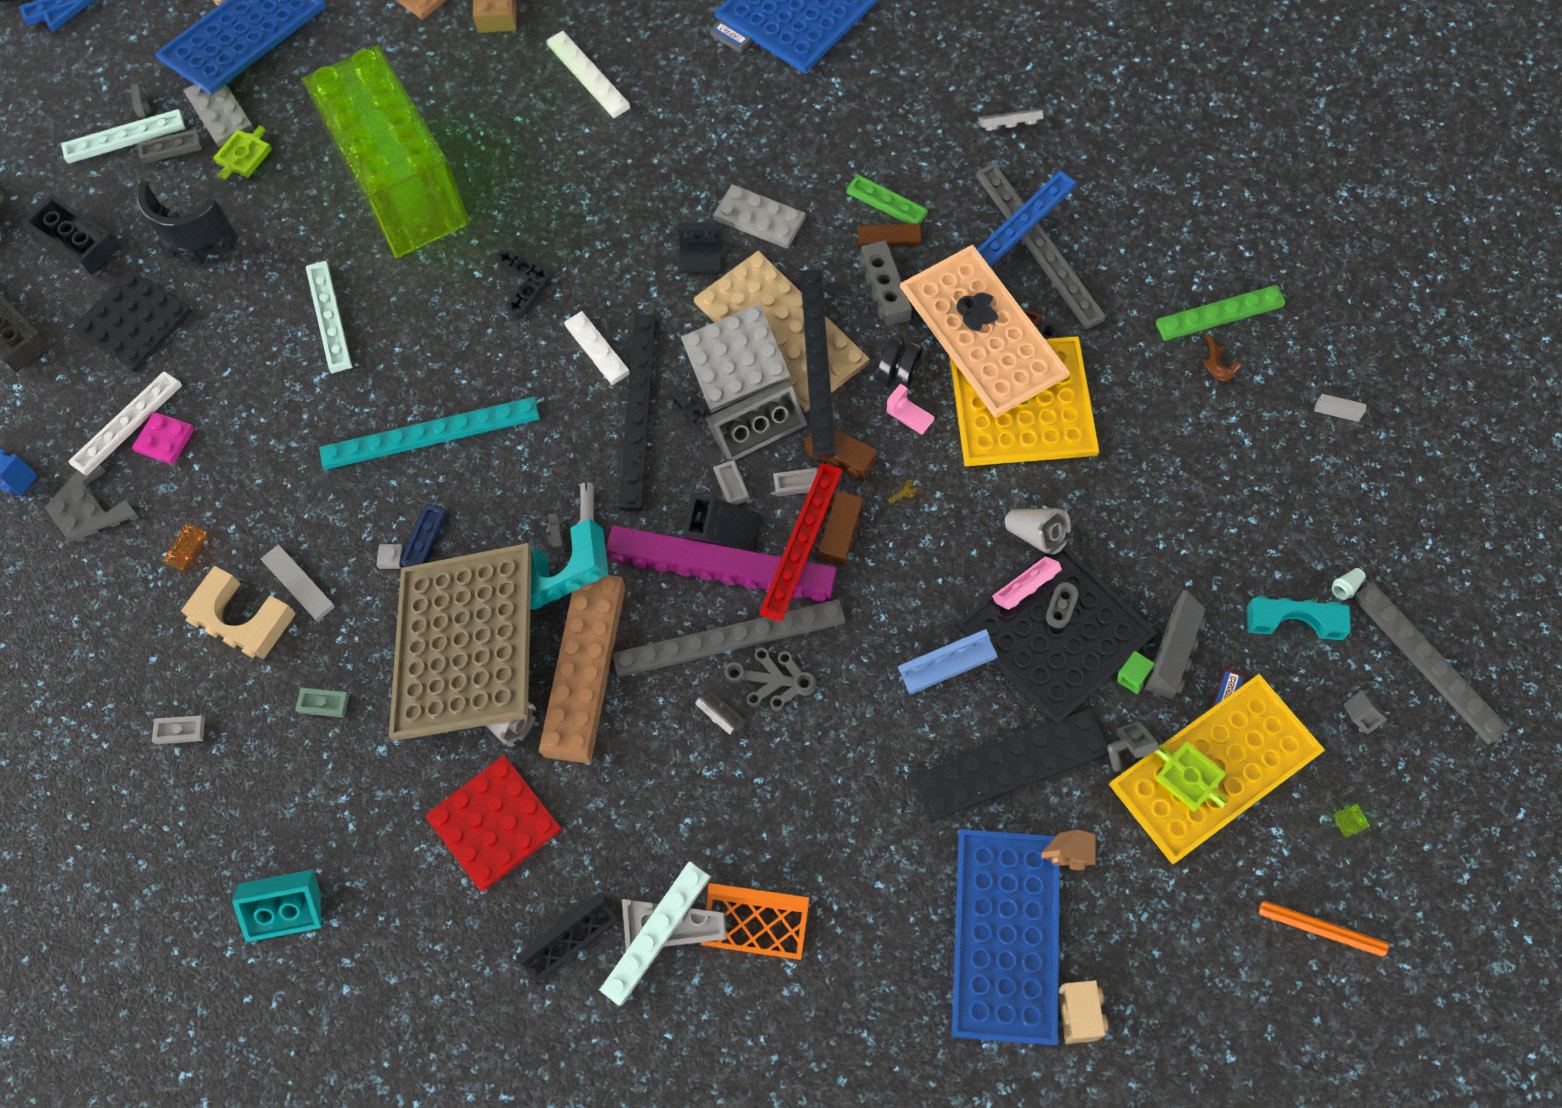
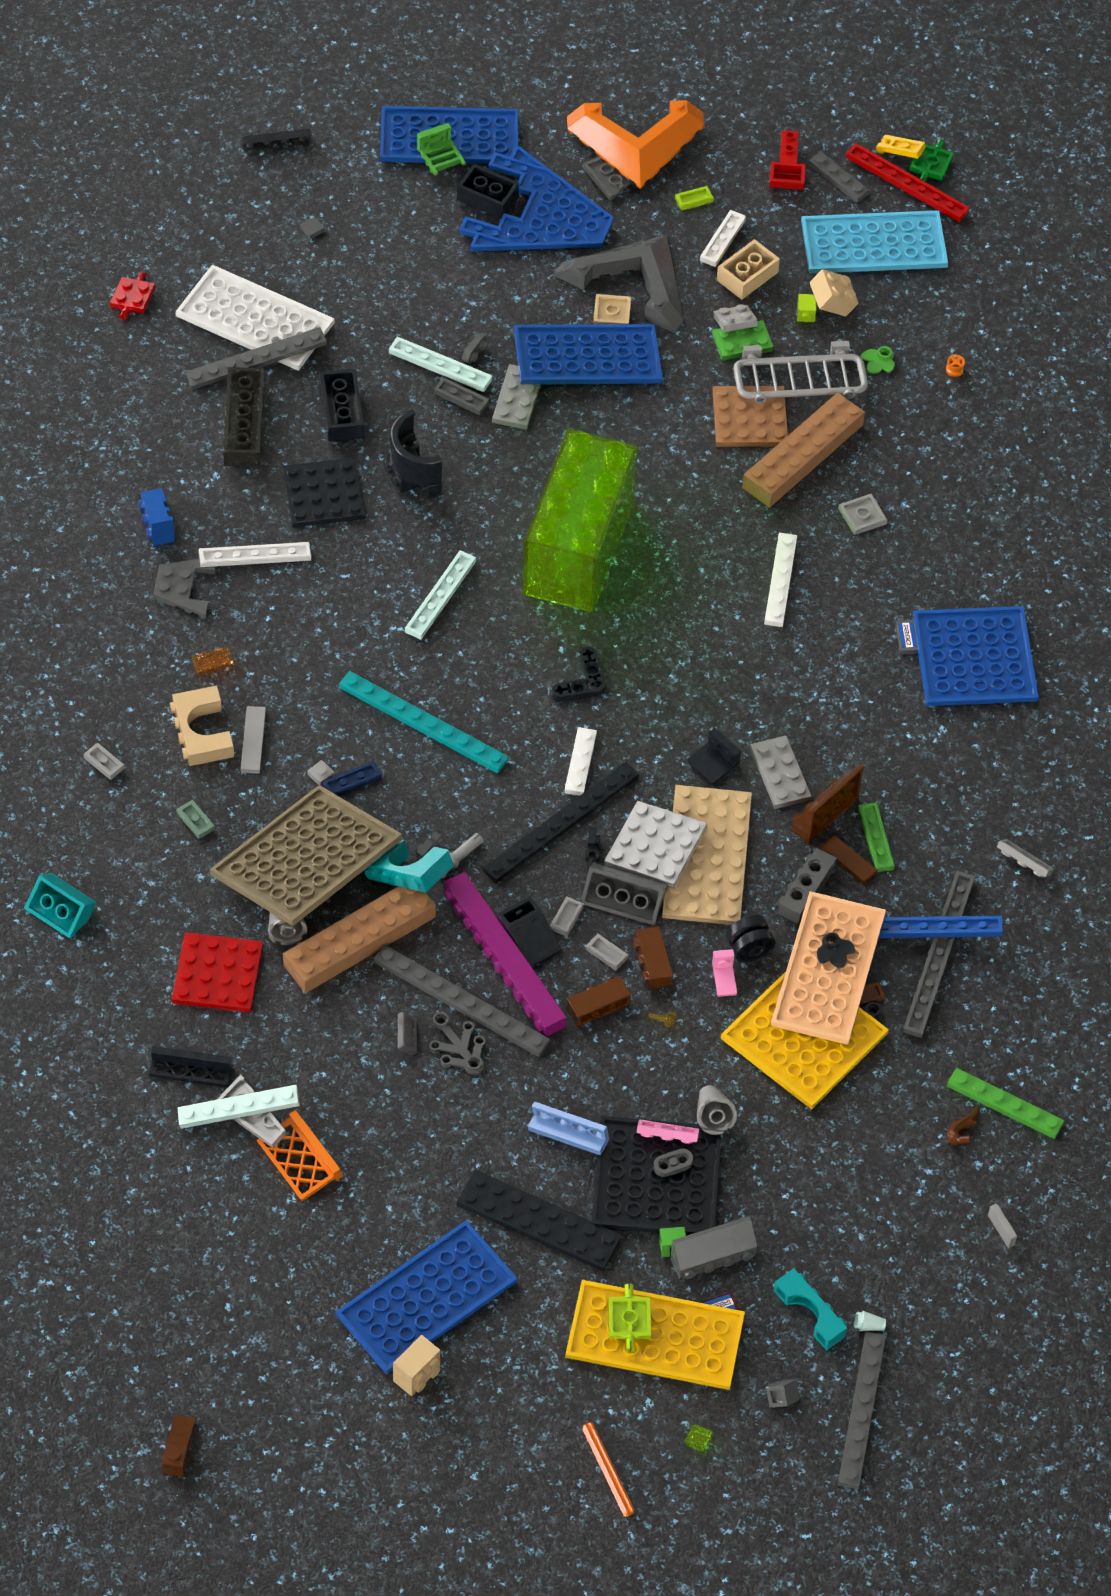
camera: 40 degrees right, 10 degrees down
(163, 438) = (266, 583): dark pink plate -> none
(242, 153) = (500, 440): lime plate -> none
(801, 543) = (562, 982): red plate -> none
(817, 364) = (700, 891): black plate -> none
(828, 204) = (828, 805): none -> reddish brown slope
(1072, 849) = (515, 1288): medium nougat slope -> none
(1136, 739) = (622, 1272): dark grey plate -> none

